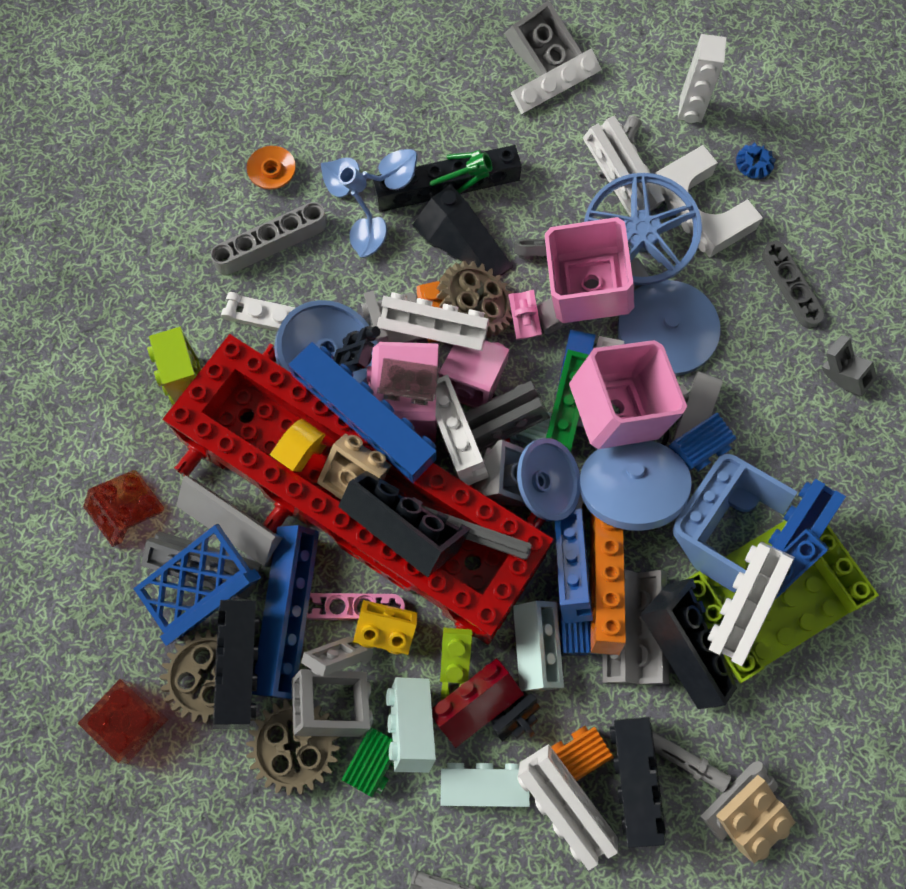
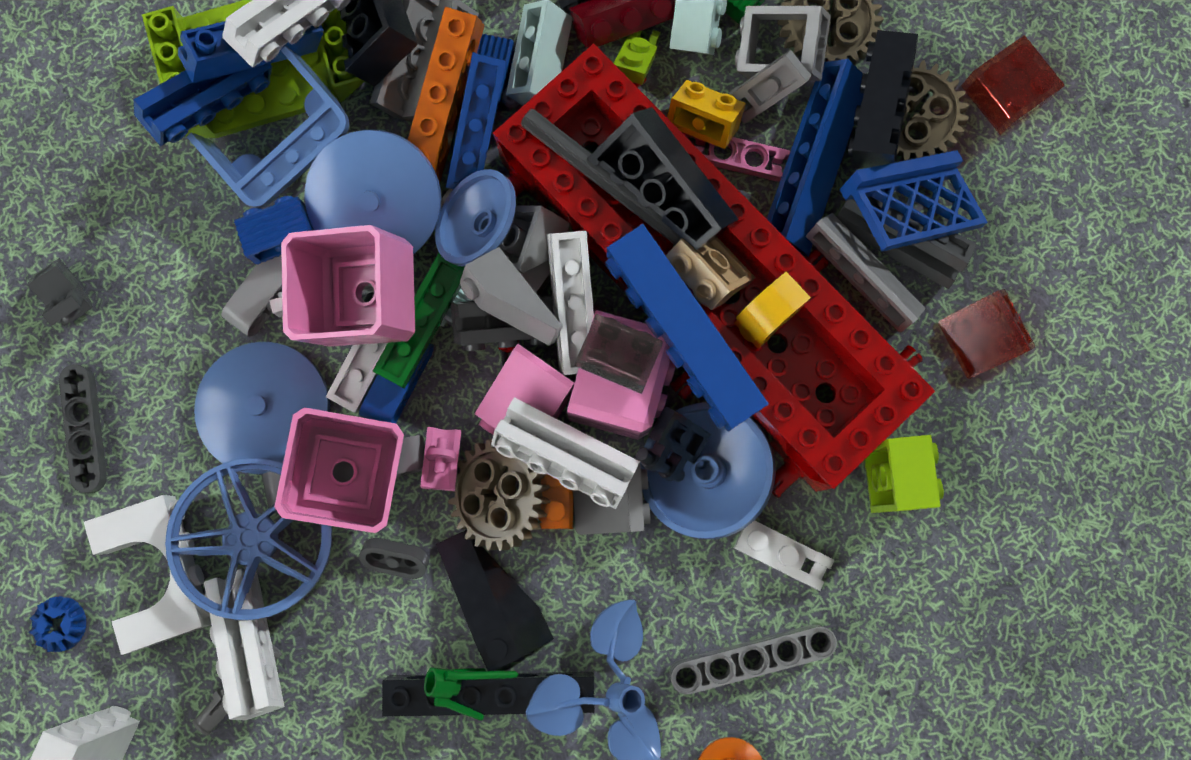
camera: 165 degrees left, 10 degrees up
(511, 421) = (507, 296): none -> light grey slope

